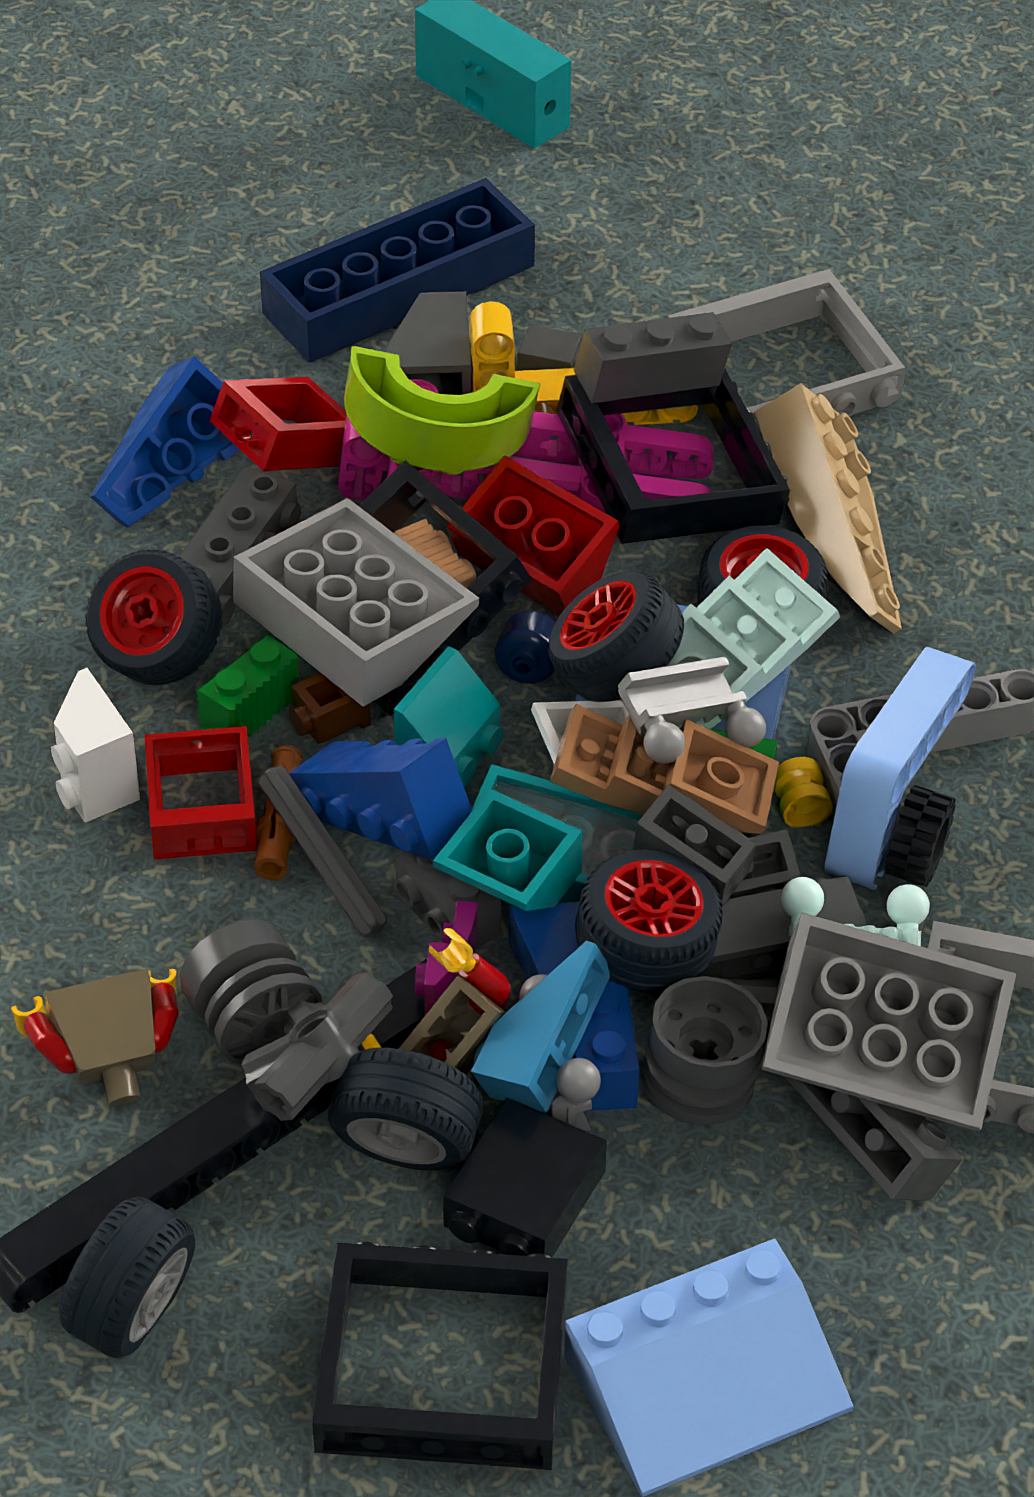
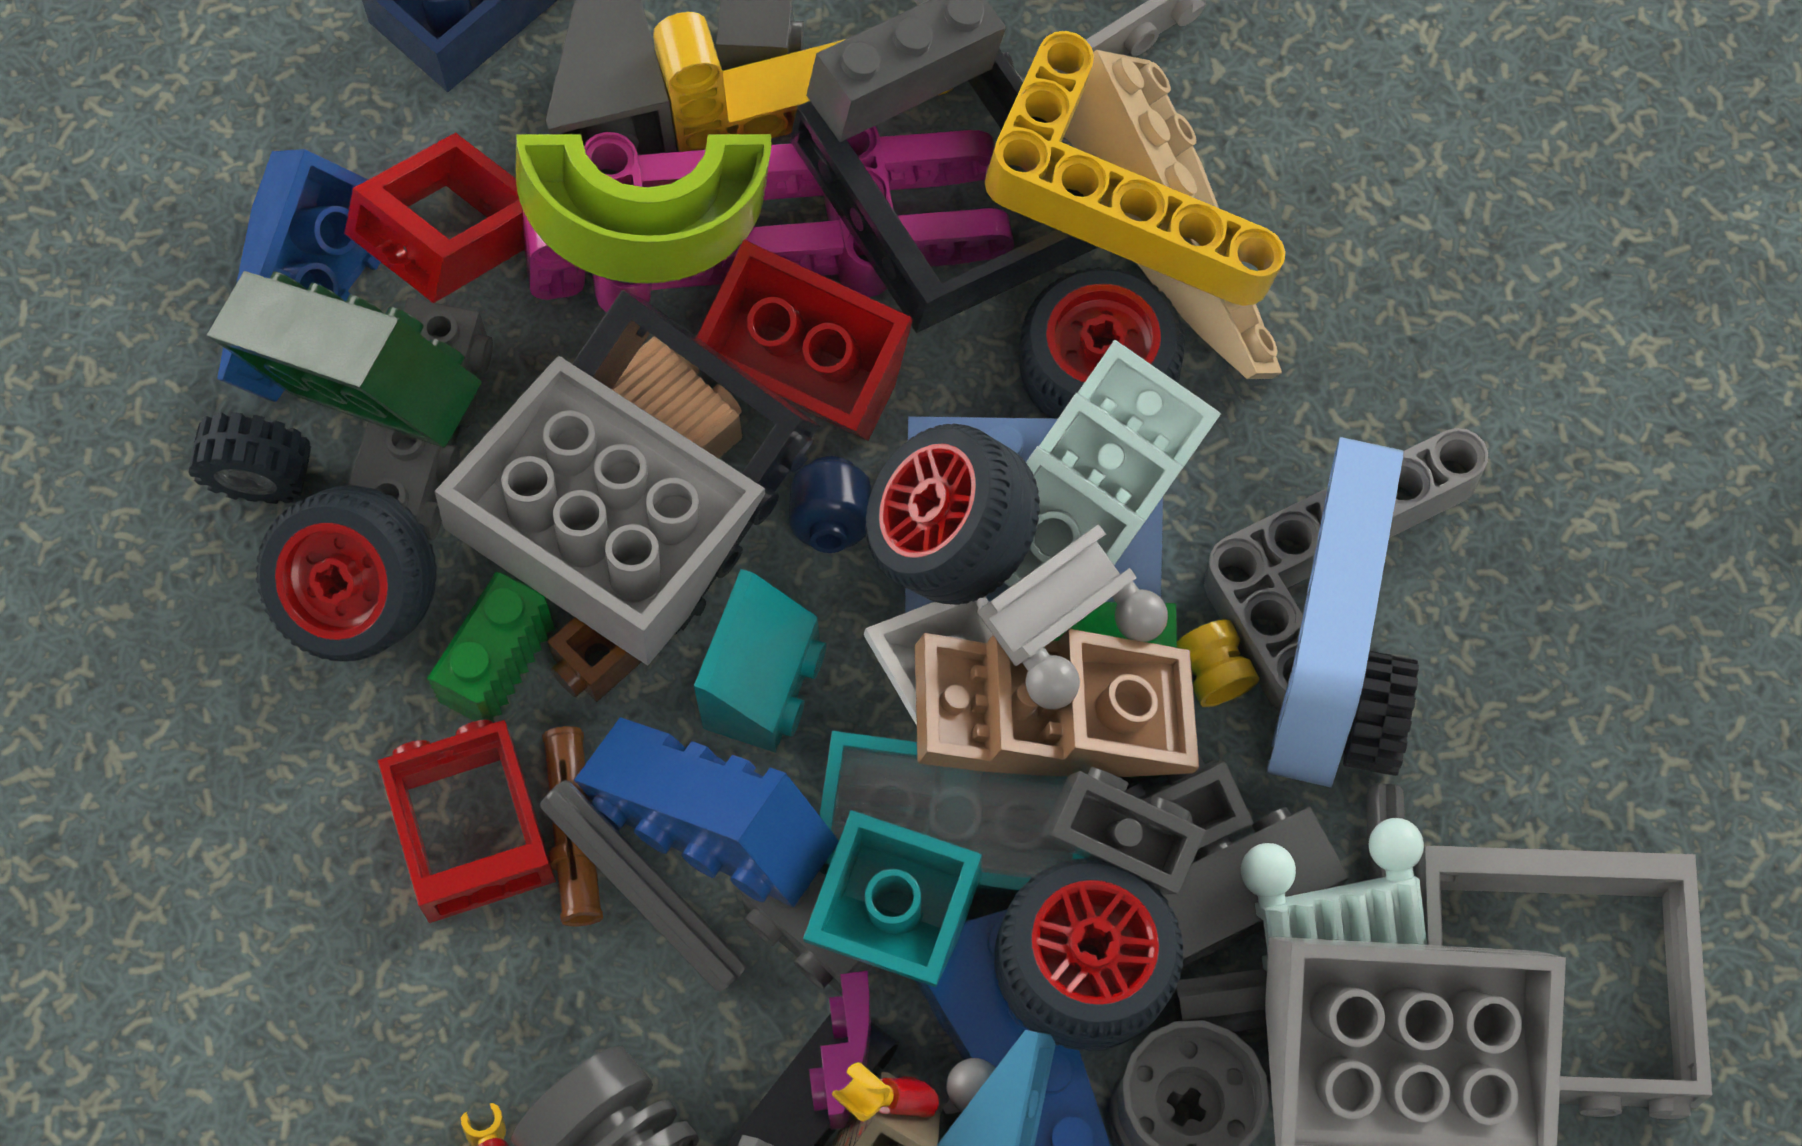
camera: 10 degrees left, 20 degrees up
(93, 752) = (316, 804): white slope -> none
(97, 537) = (250, 458): none -> black wheel
(190, 477) = (347, 355): none -> dark green brick
(744, 450) = (1112, 191): none -> yellow beam

